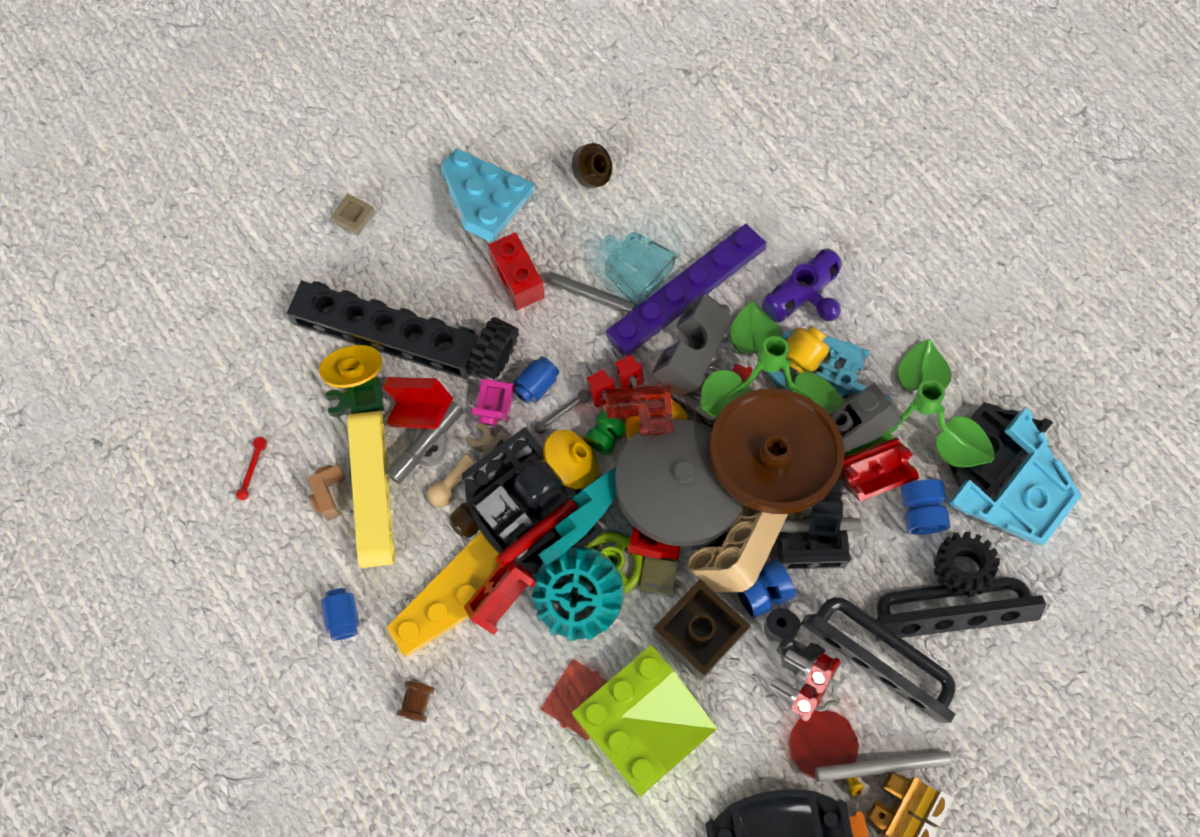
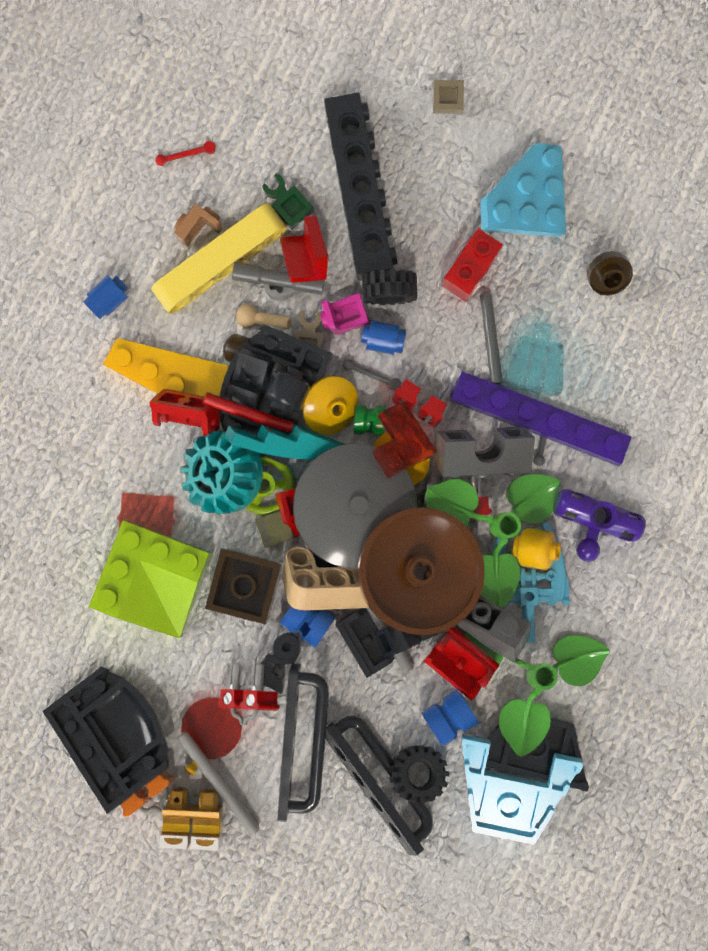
camera: 70 degrees right, 15 degrees up
(350, 366) = (310, 179): yellow dish -> none
(415, 701) = (72, 394): reddish brown bush -> none

